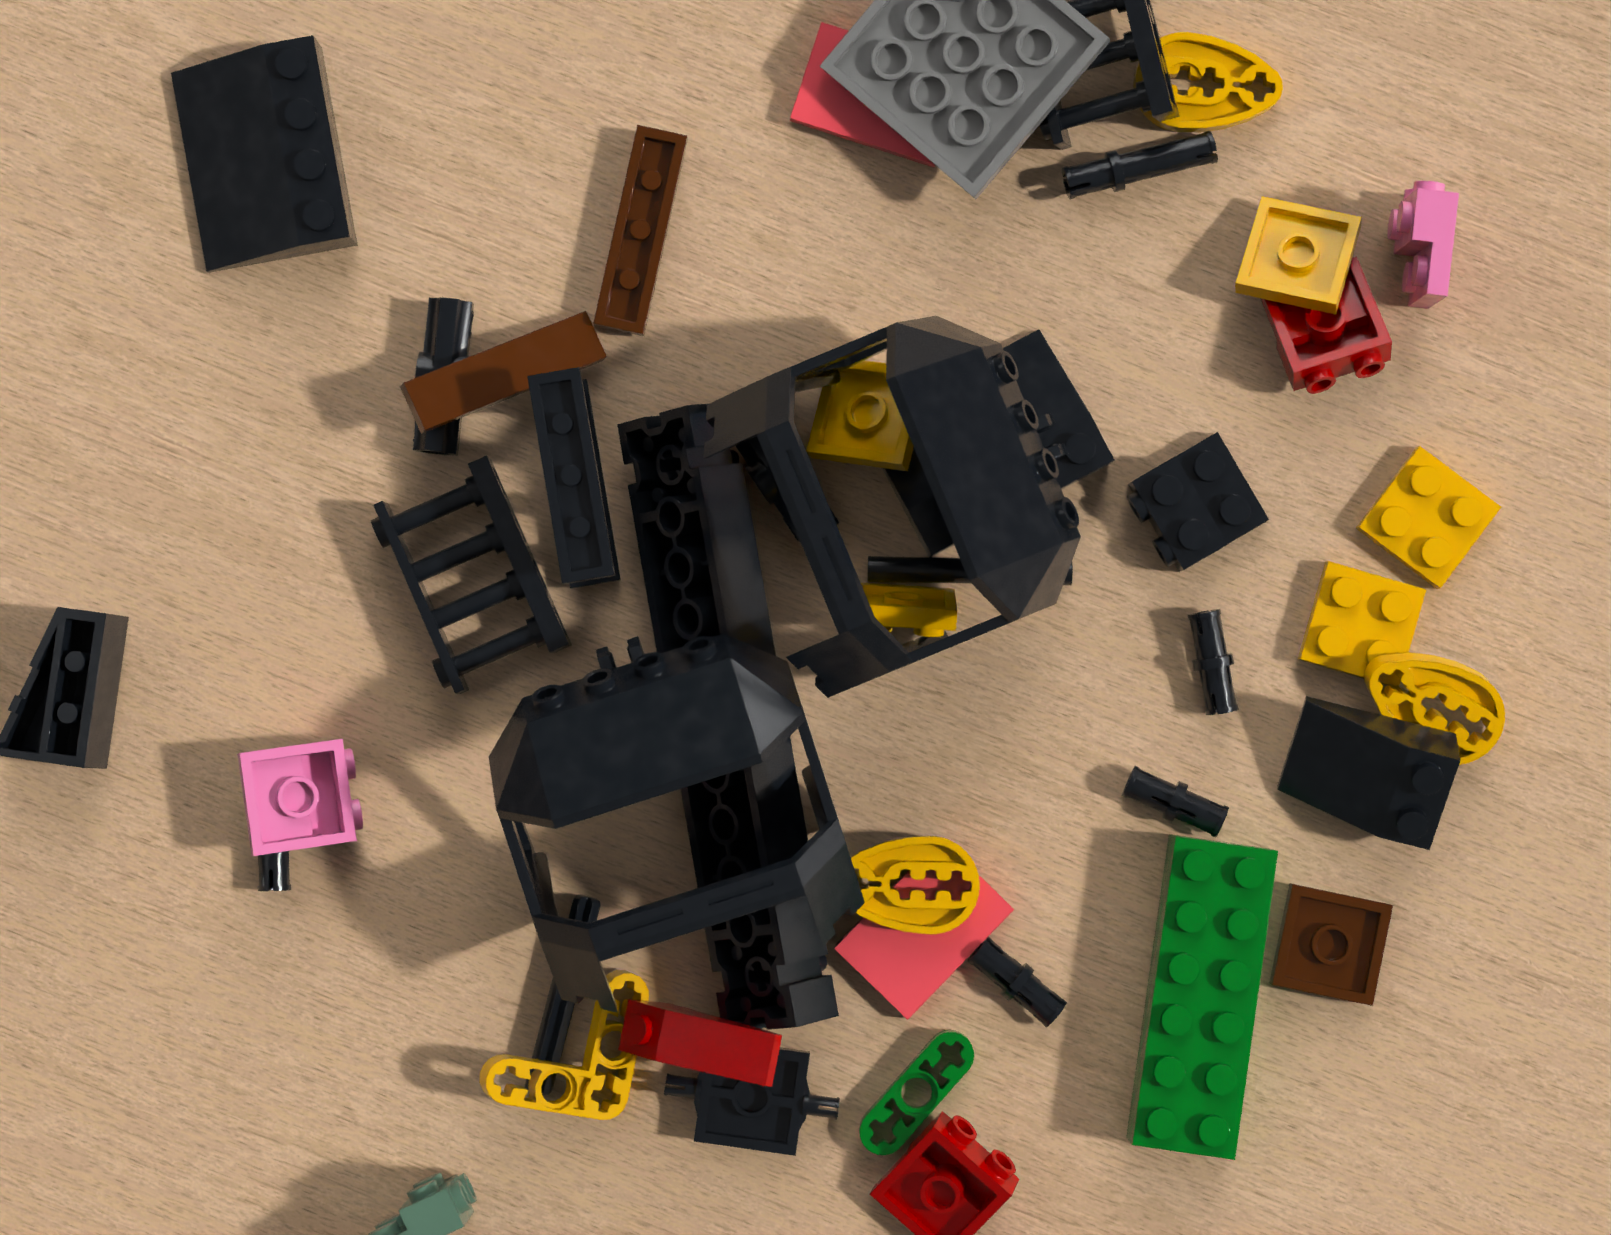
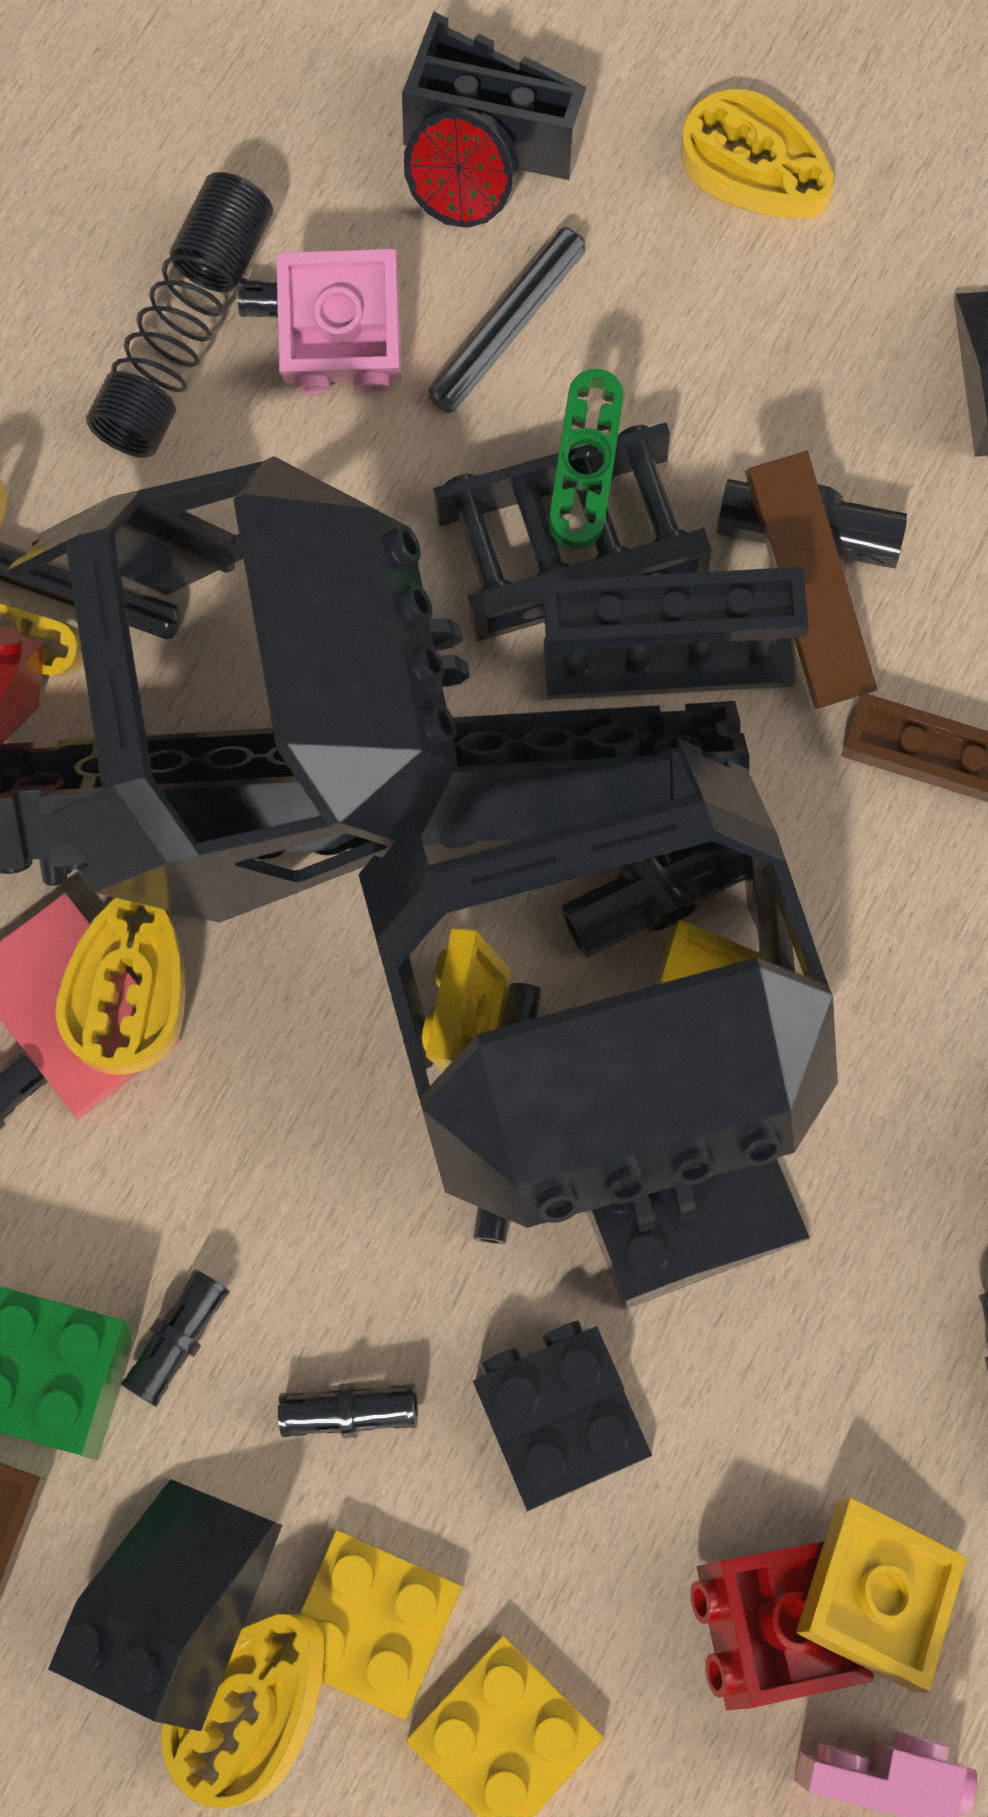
camera: 105 degrees right, 15 degrees down
(58, 447) = (767, 129): none -> yellow piece
(138, 710) = (461, 166): none -> tile
(236, 922) = (210, 252): none -> black piece
(271, 654) = (506, 320): none -> black axle
(458, 581) = (609, 420): none -> green beam

